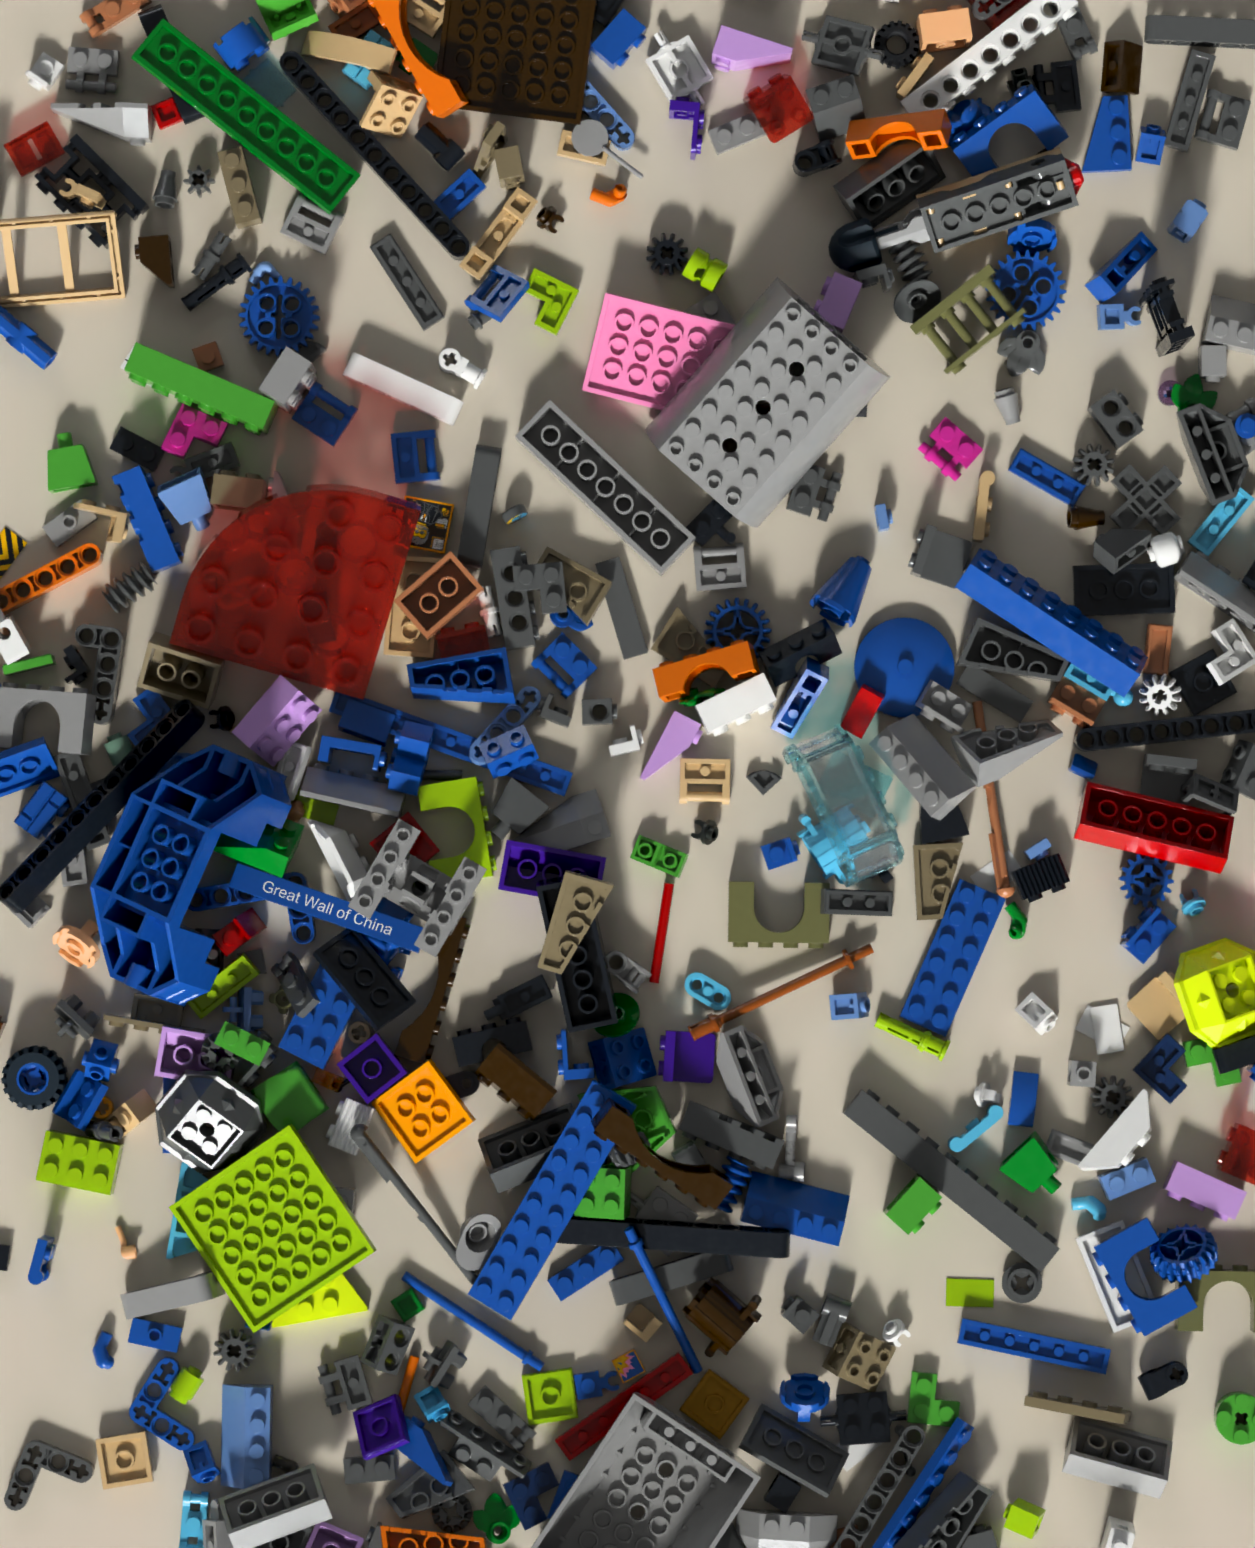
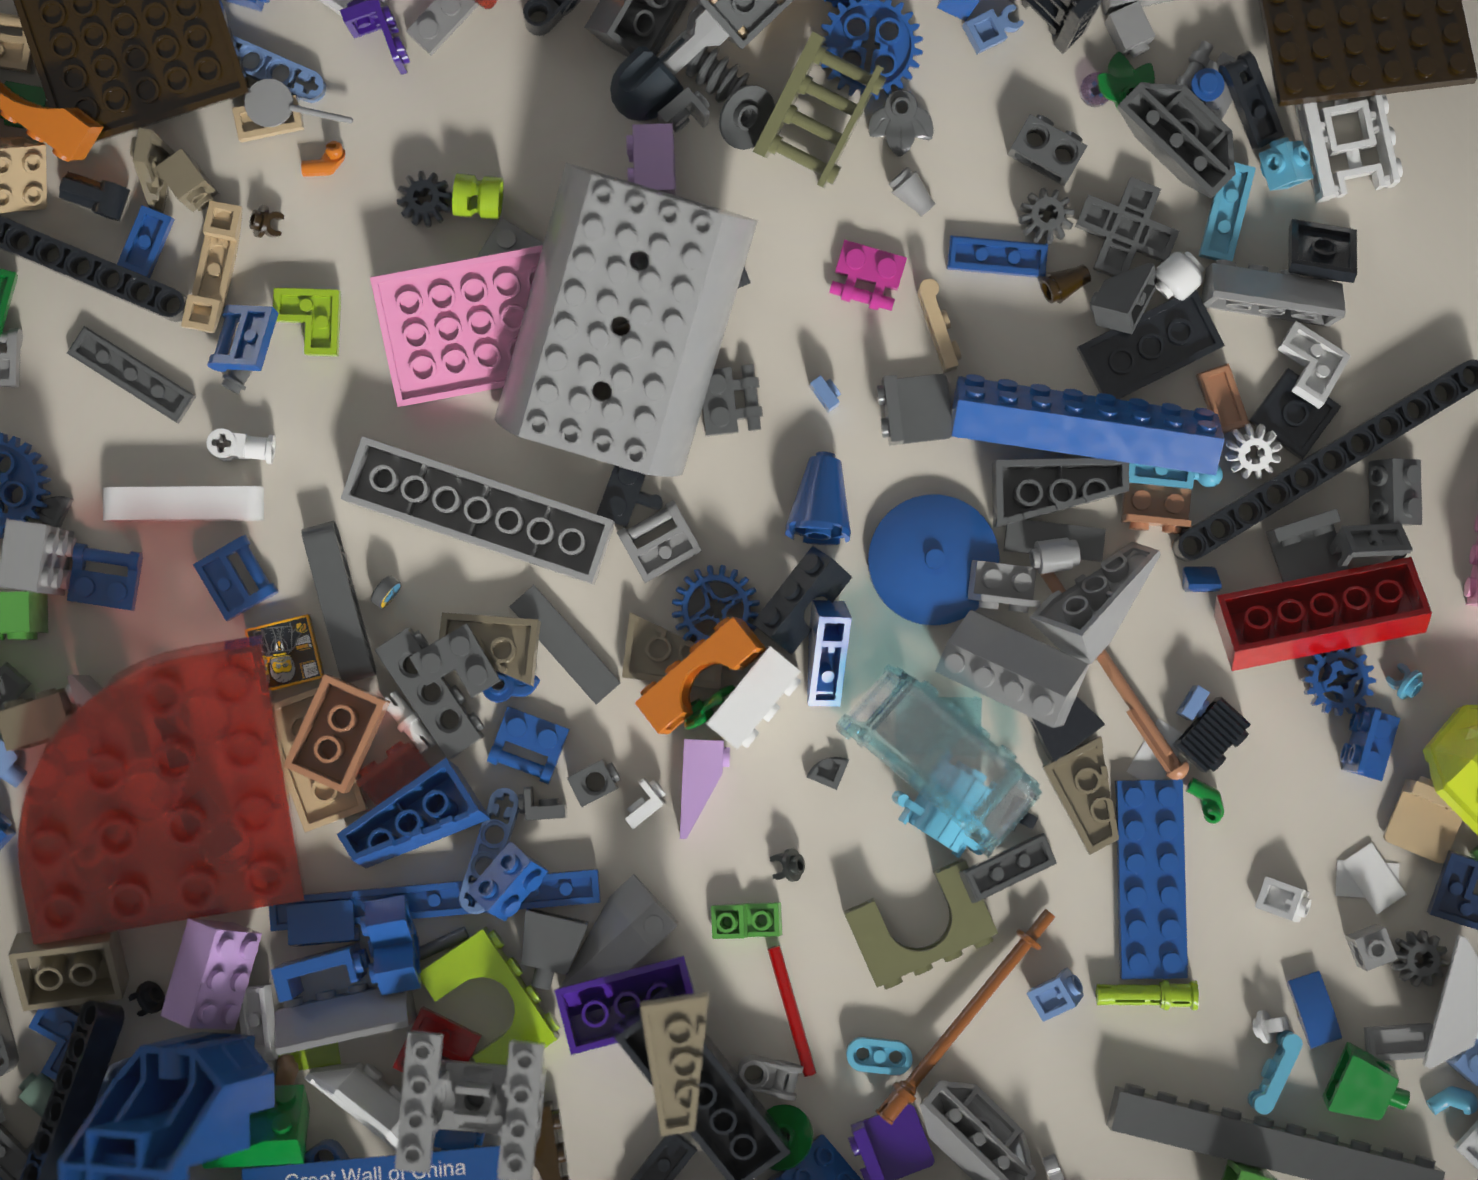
camera: 25 degrees left, 0 degrees up
(704, 772) = (755, 795): tan plate -> none
(780, 853) = (889, 849): blue bracket -> none
(862, 711) = (908, 634): red slope -> none
(989, 702) = (1054, 555): none -> light grey brick

